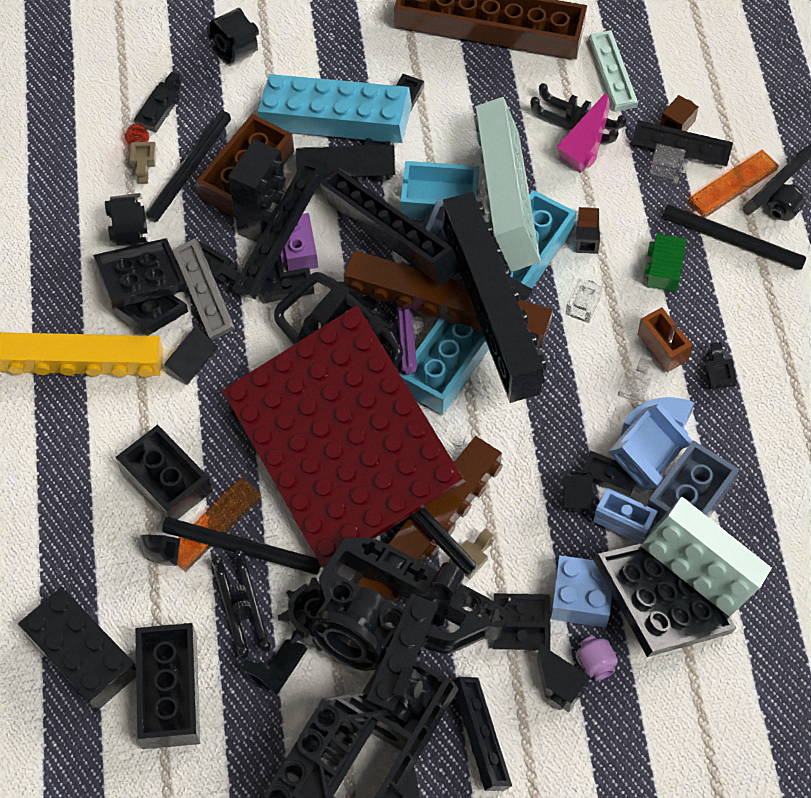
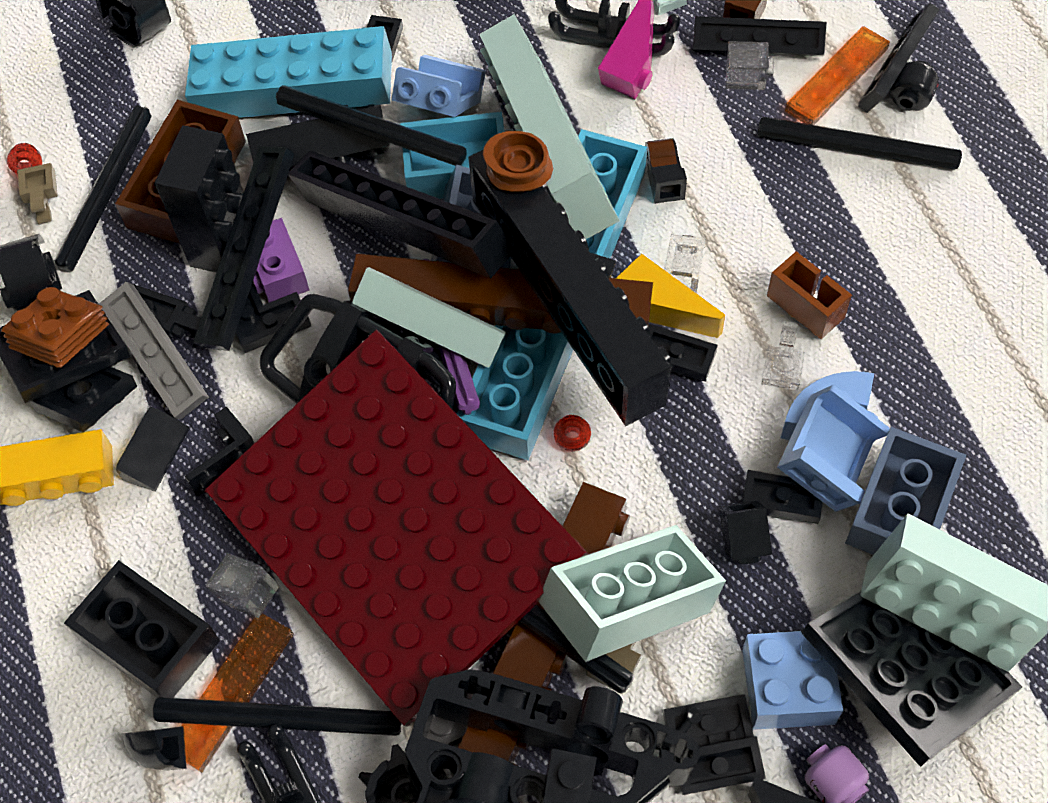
camera: 10 degrees left, 0 degrees up
(141, 260) = (54, 326): none -> dark orange brick
(159, 103) = (50, 112): black hinge -> none
(234, 458) = (242, 585): none -> clear brick
(248, 362) = (237, 442): none -> black bracket
(384, 159) = (371, 125): none -> black axle
(394, 303) = (428, 317): none -> light aqua tile
(440, 139) = (439, 86): none -> light blue panel
(474, 210) = (517, 161): none -> dark orange piece
(480, 396) = (576, 424): none -> clear red plate
(489, 511) = (630, 591): none -> light aqua brick
(565, 361) = (688, 354): none -> black plate
(568, 325) = (674, 302): none -> yellow slope
(625, 516) = (823, 555): light blue brick -> none
(666, 262) = (780, 192): green brick -> none
(719, 370) = (891, 323): black plate -> none

